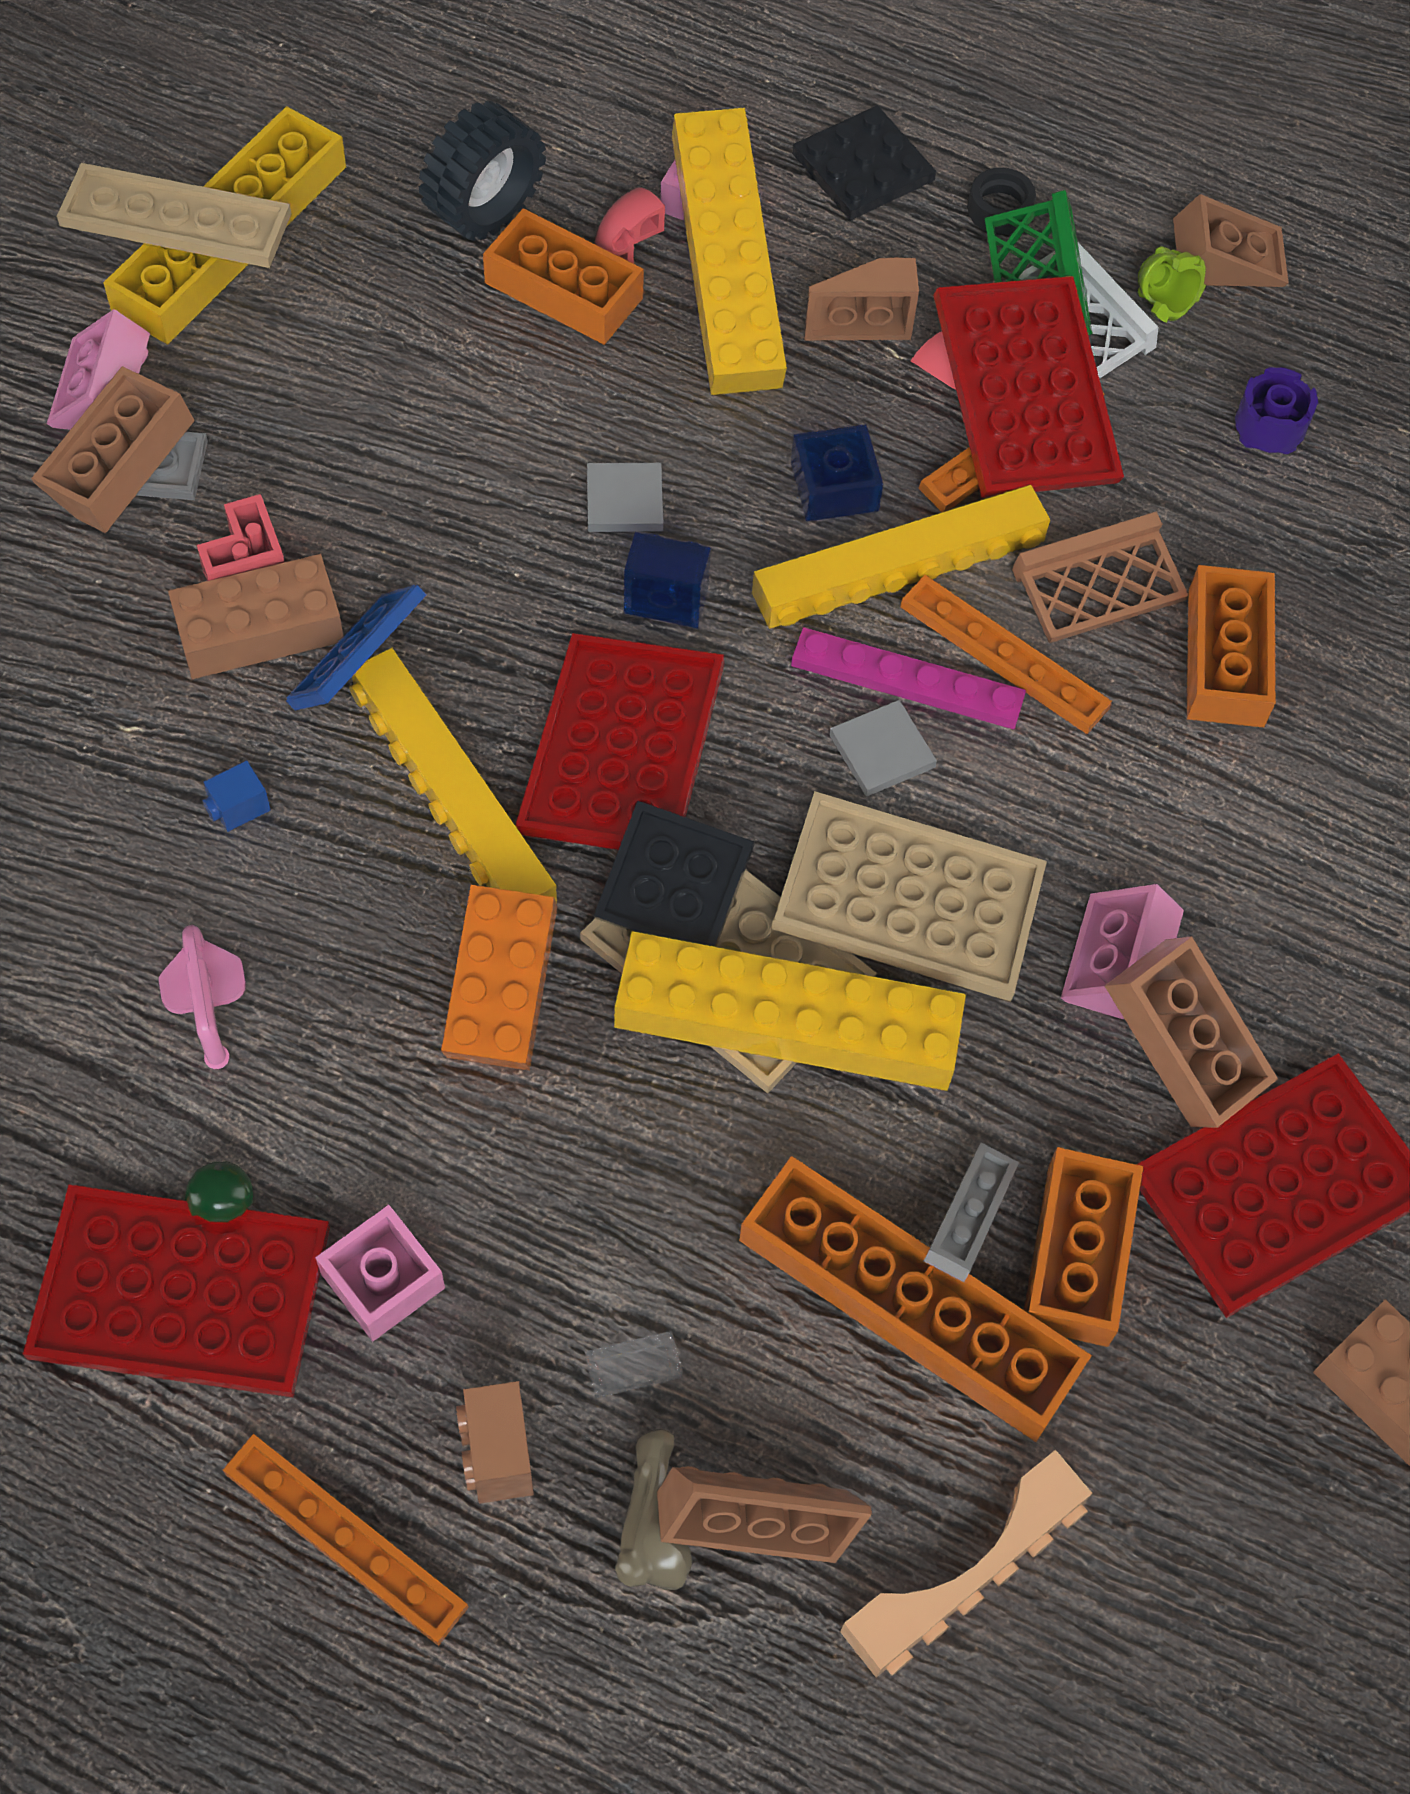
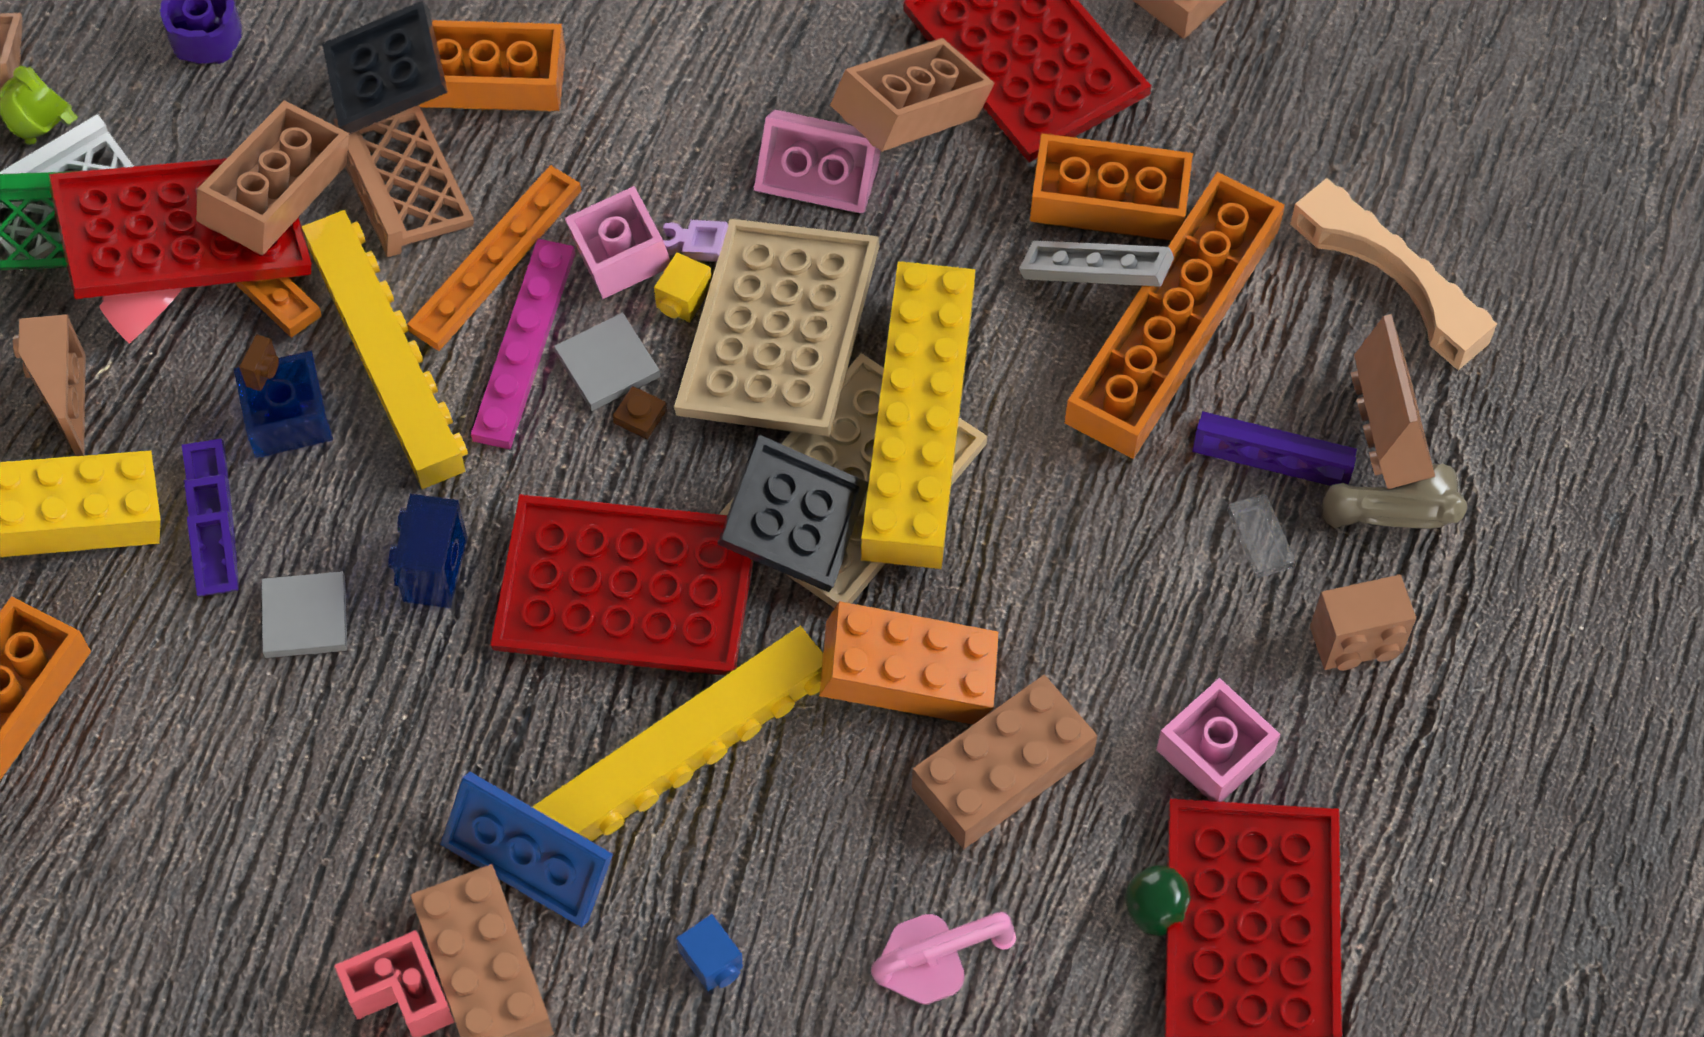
camera: 90 degrees left, 0 degrees up
(346, 1539) = (1457, 752): orange plate -> none
(392, 1066) = (1003, 761): none -> nougat brick
(720, 427) = (210, 518): none -> dark purple slope
(741, 1389) = (1274, 450): none -> dark purple fence
(822, 772) = (639, 412): none -> reddish brown plate
(862, 434) = (259, 363): none -> reddish brown plate
(962, 810) = (682, 287): none -> yellow brick
(1013, 753) = (618, 242): none -> bright pink brick
(1023, 830) = (699, 242): none -> lavender plate
(1077, 451) = (272, 177): none -> nougat brick
(1209, 543) = (384, 67): none -> black plate

